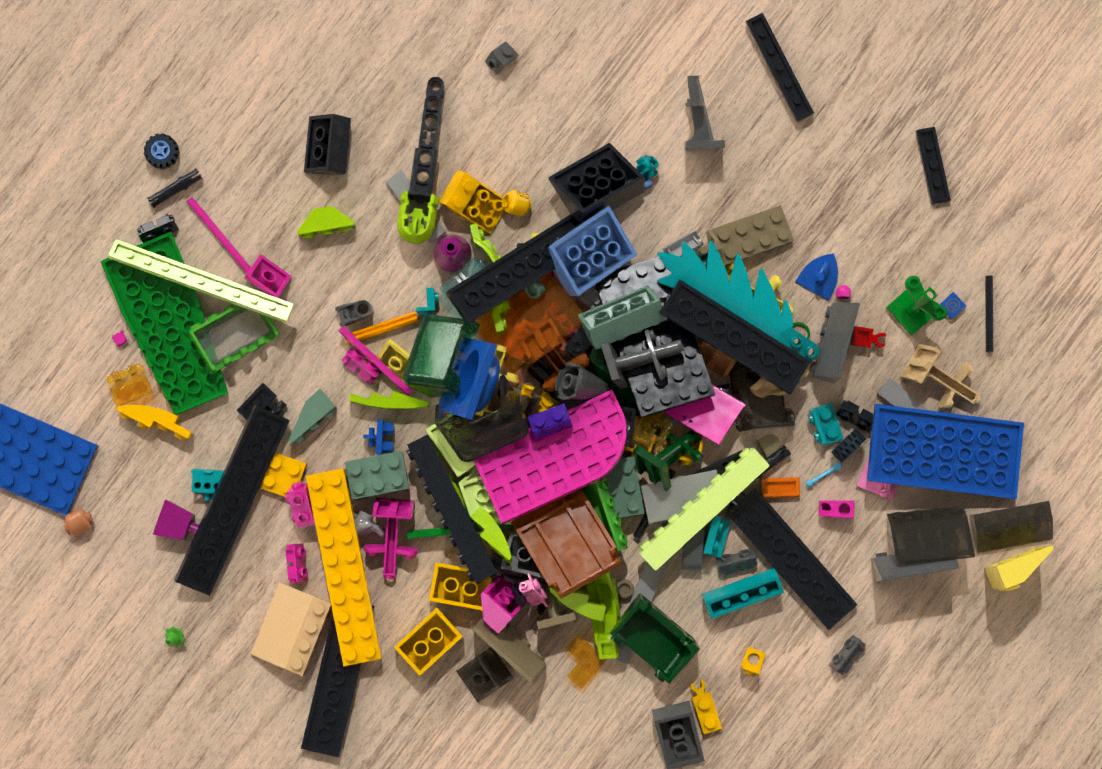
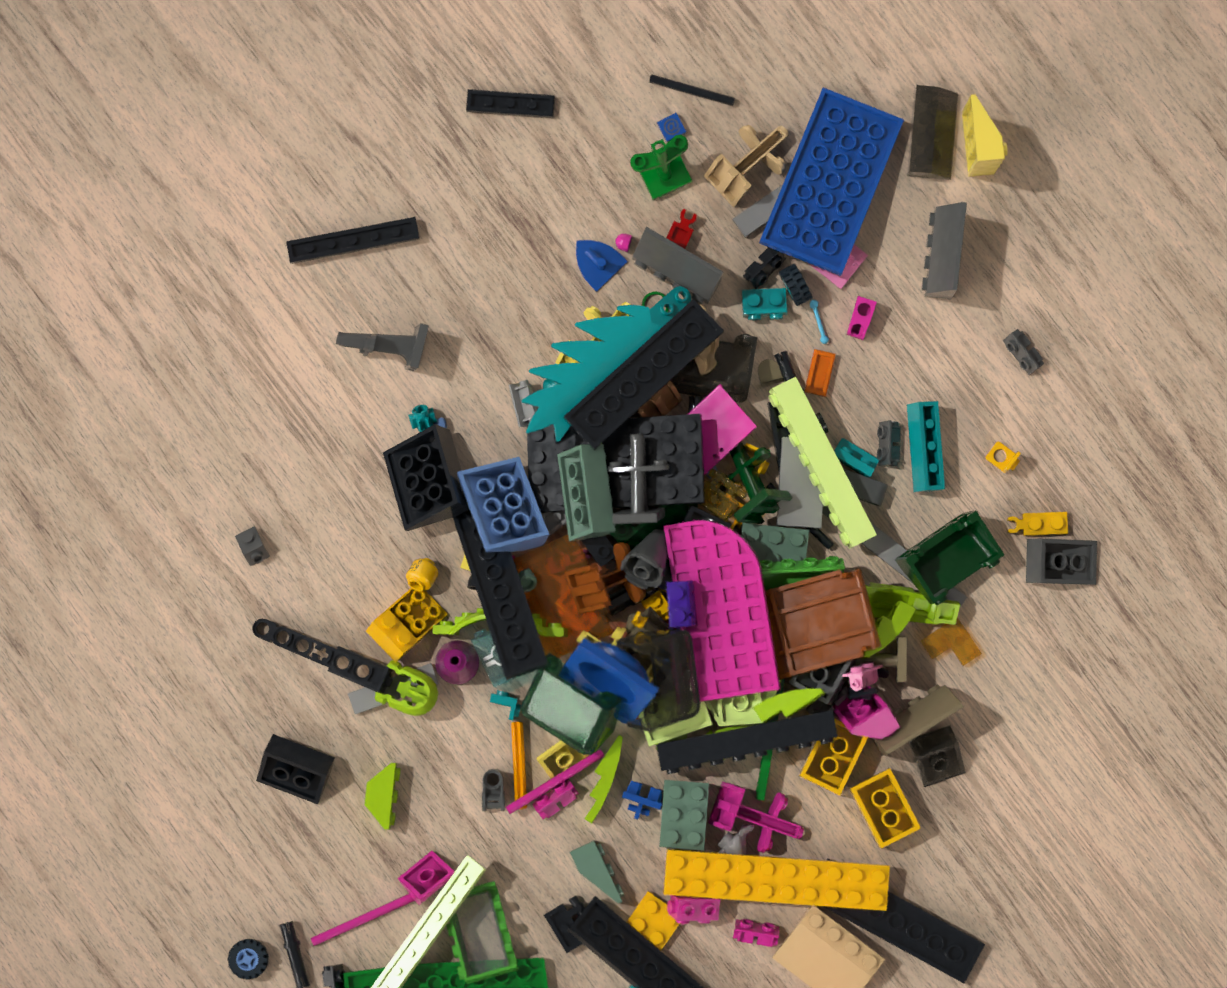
camera: 75 degrees left, 0 degrees up
(625, 588) = (884, 575): dark tan tile -> none
(749, 235) = (532, 327): dark tan hinge -> none
(792, 559) = (902, 382): black plate -> none
(930, 535) = (919, 224): clear smoke slope -> none

